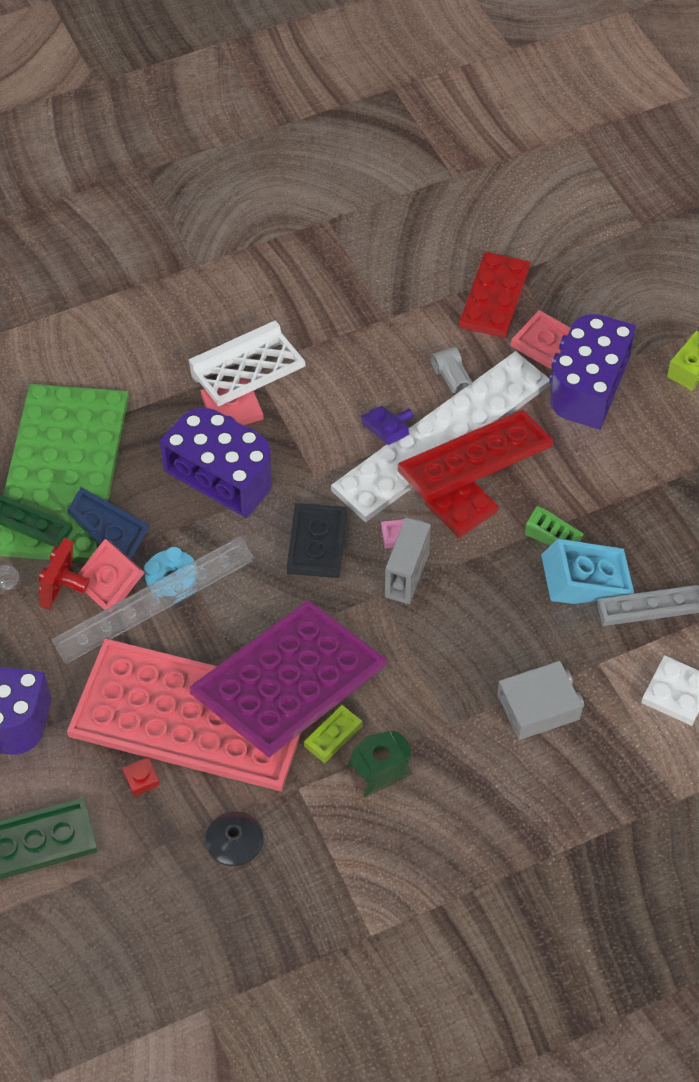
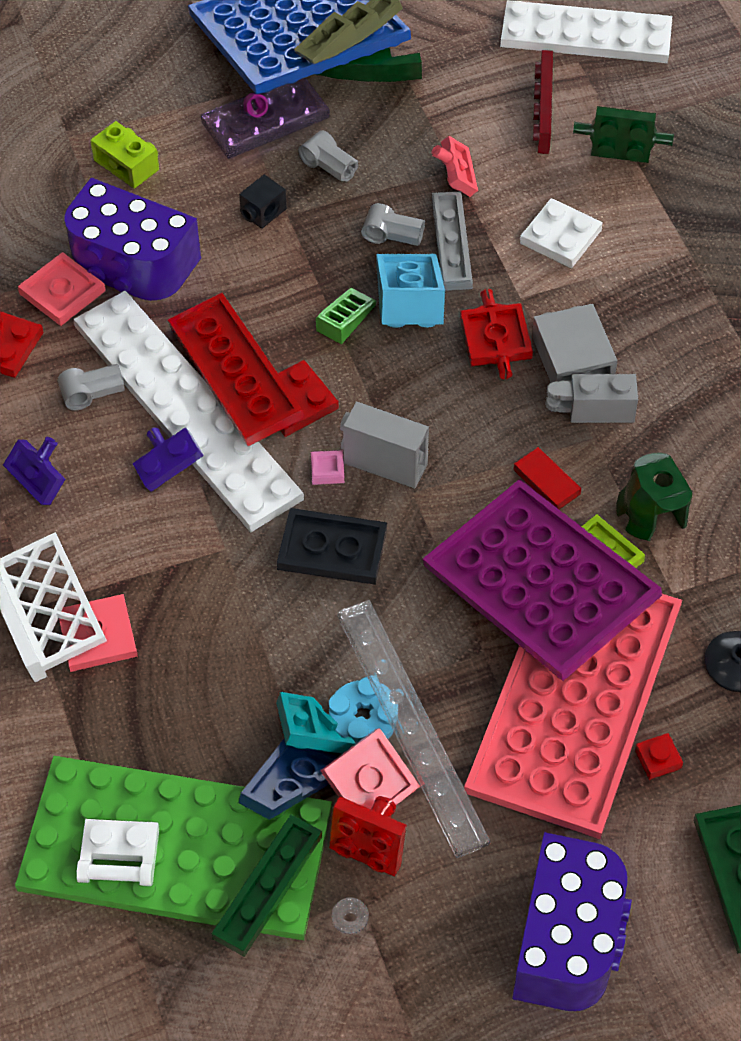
camera: 85 degrees left, 0 degrees up
(55, 432) = (118, 842): none -> white plate
(152, 534) = (308, 725): none -> teal wing
(219, 459) = (205, 634): dark purple brick -> none
(370, 342) = (35, 470): none -> dark purple plate
(401, 688) = (547, 478): none -> red tile
(484, 718) = (595, 398): none -> light grey hinge
(547, 640) = (496, 334): none -> red plate
(655, 552) = (385, 224): none -> light grey piece
(662, 459) = (262, 201): none -> black brick

